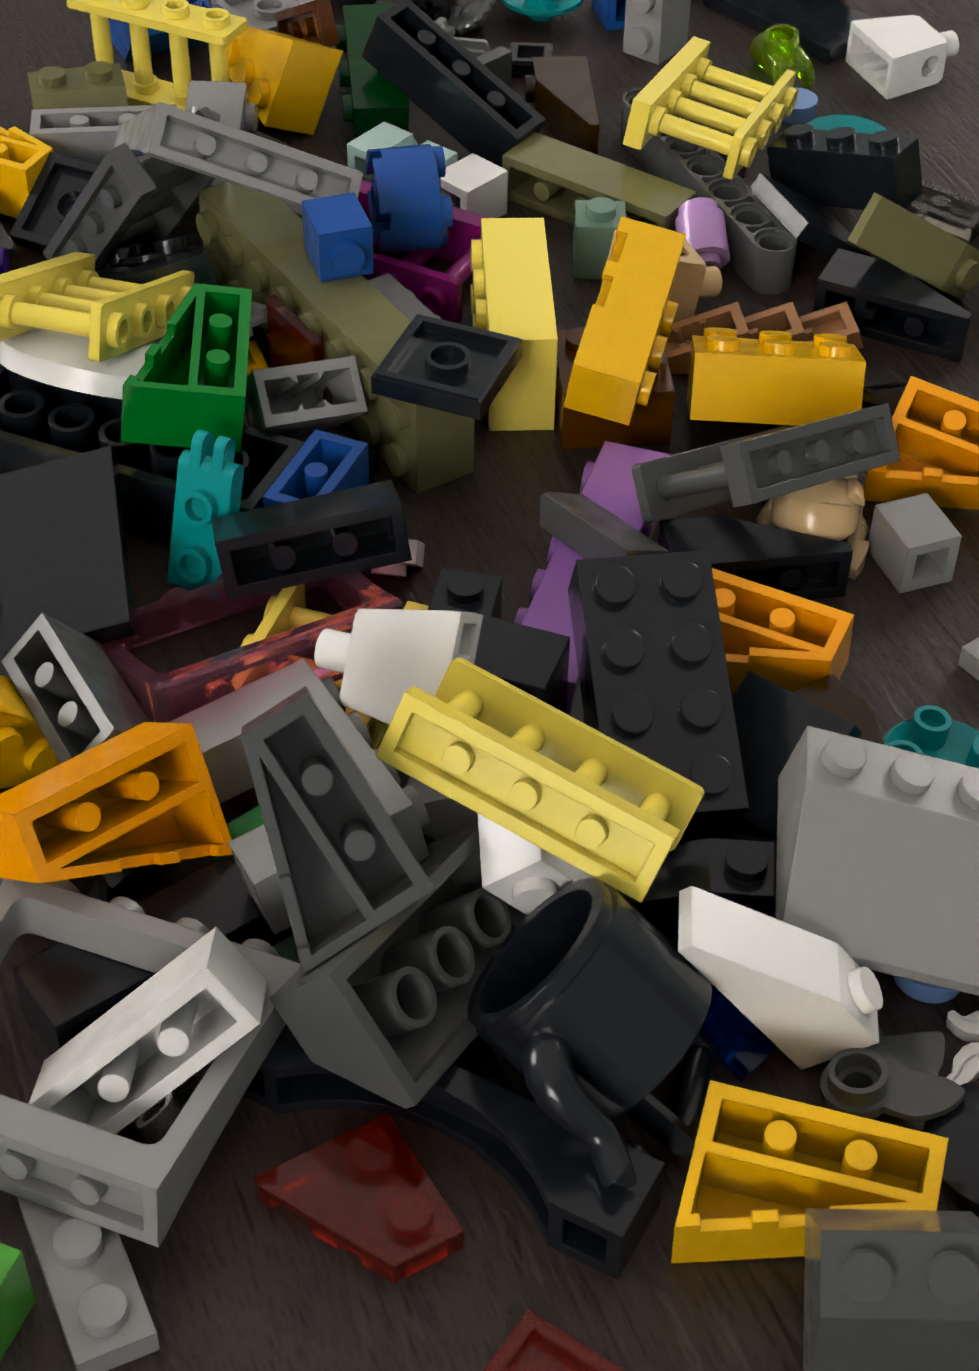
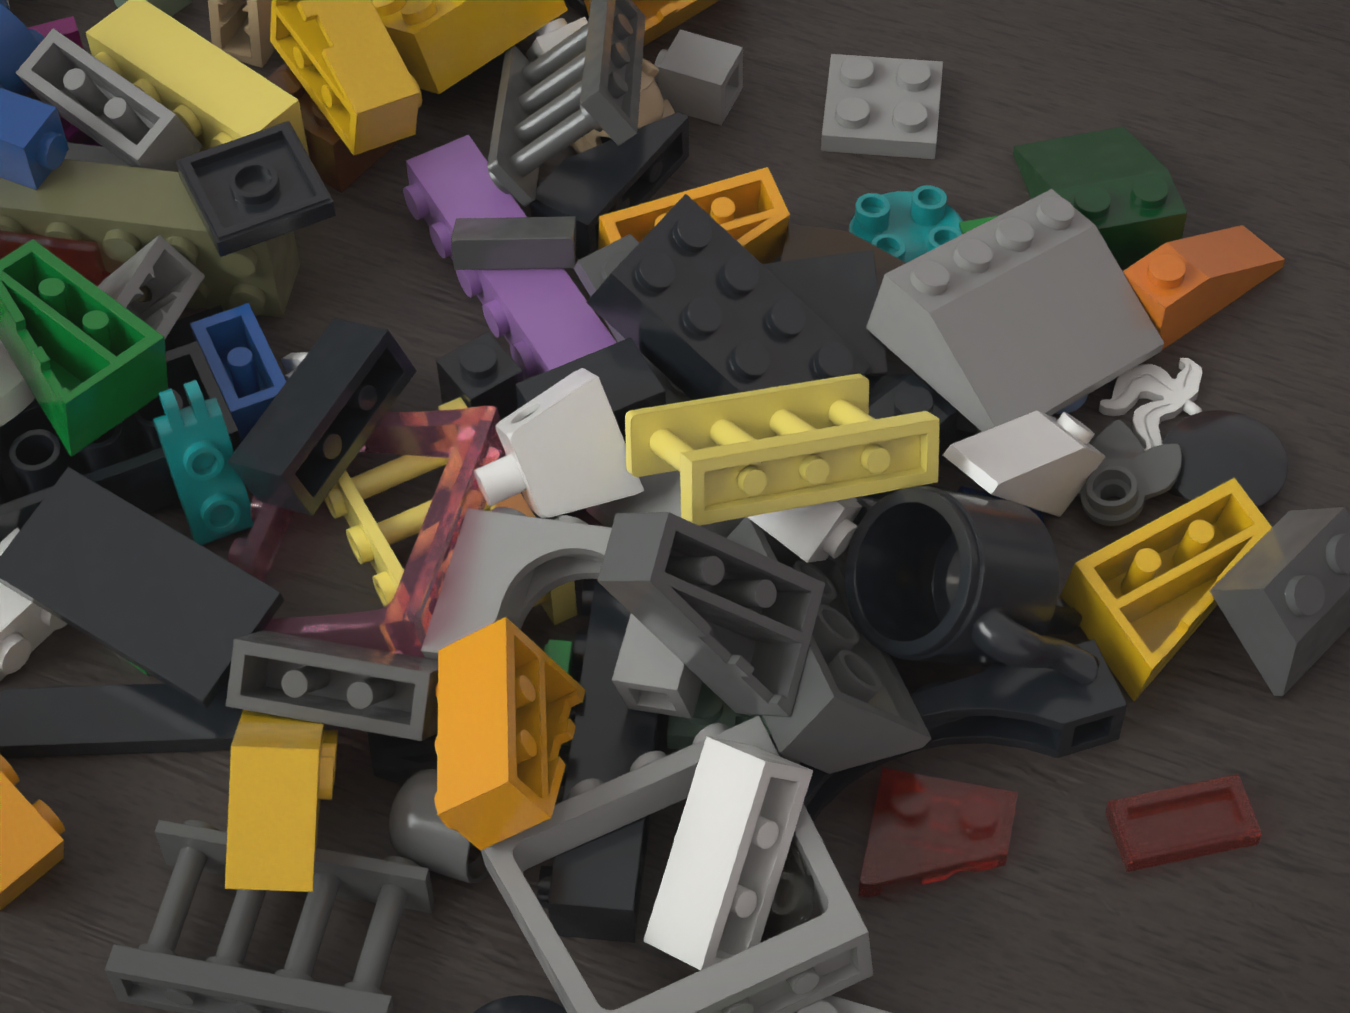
camera: 45 degrees left, 10 degrees up
(434, 262) = (106, 105): none -> light grey brick

